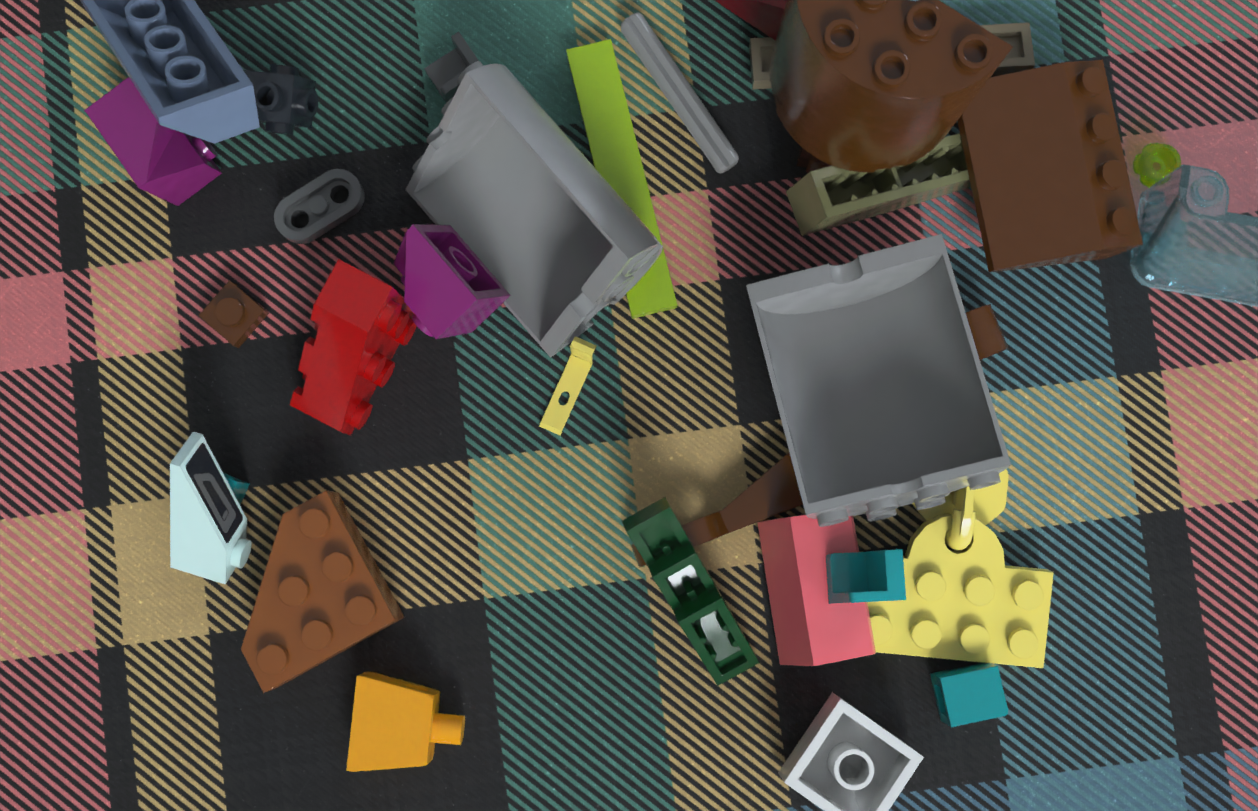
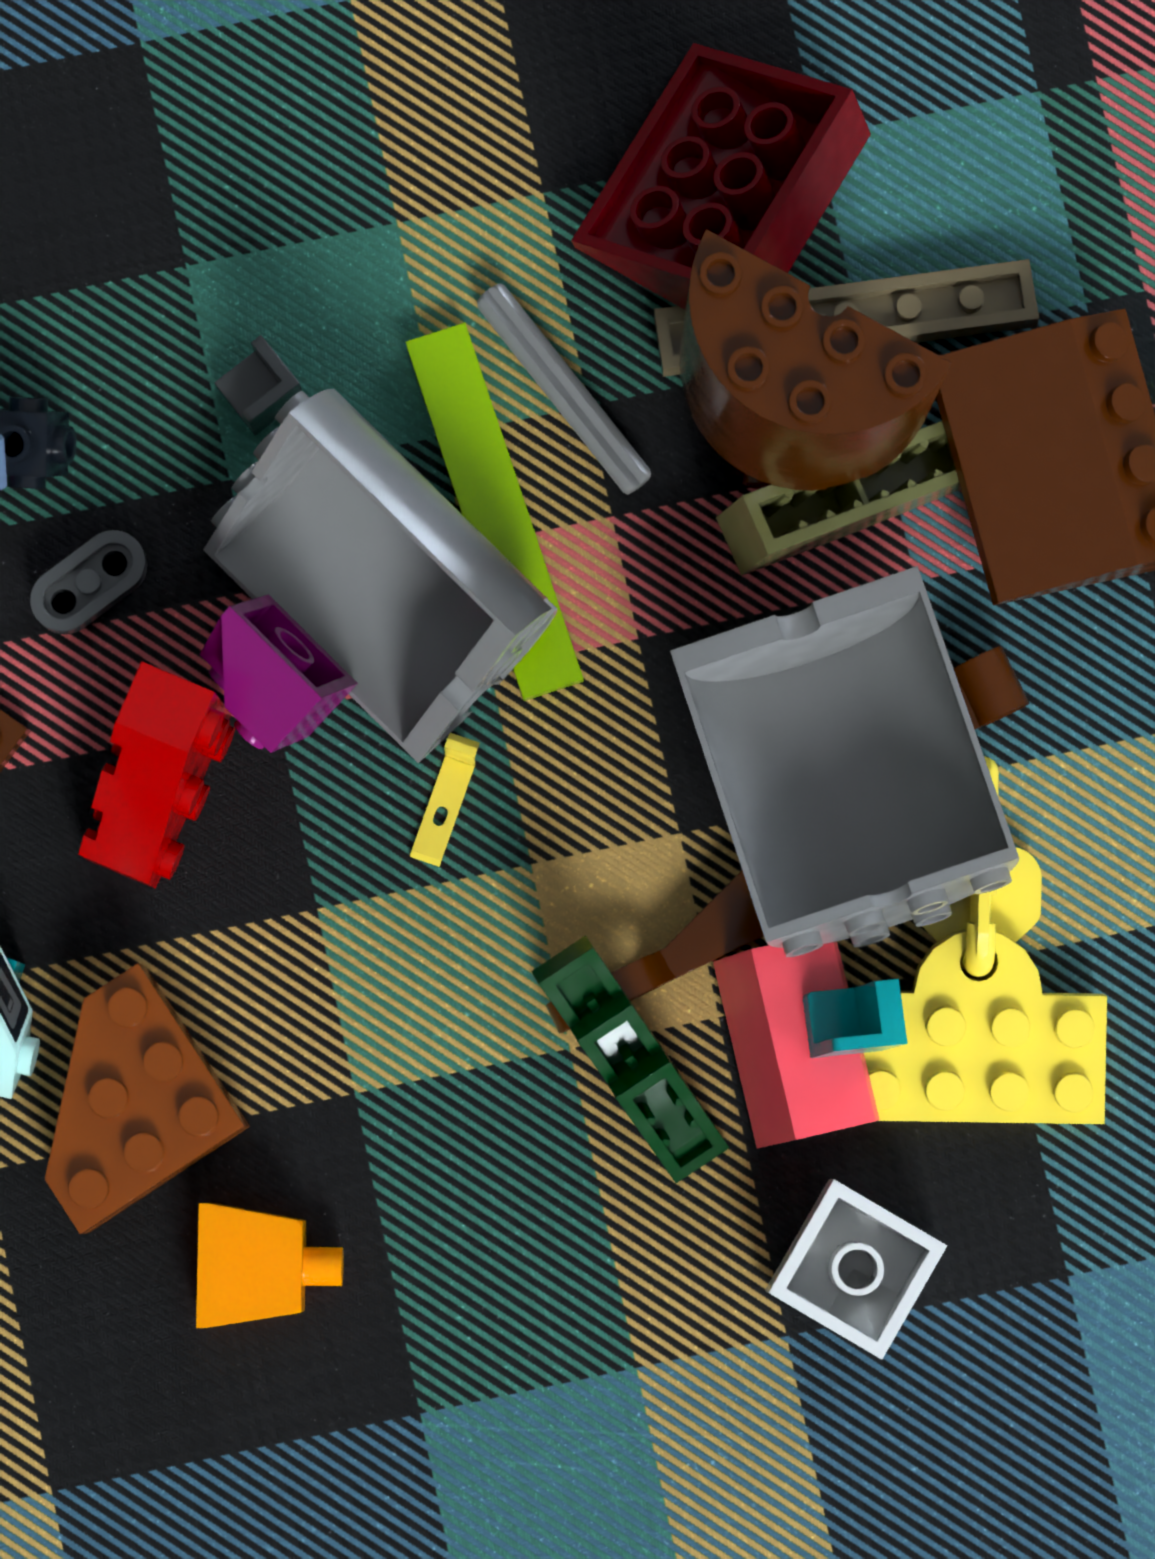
camera: 10 degrees left, 0 degrees up
(969, 694) = (1007, 1165): teal panel -> none

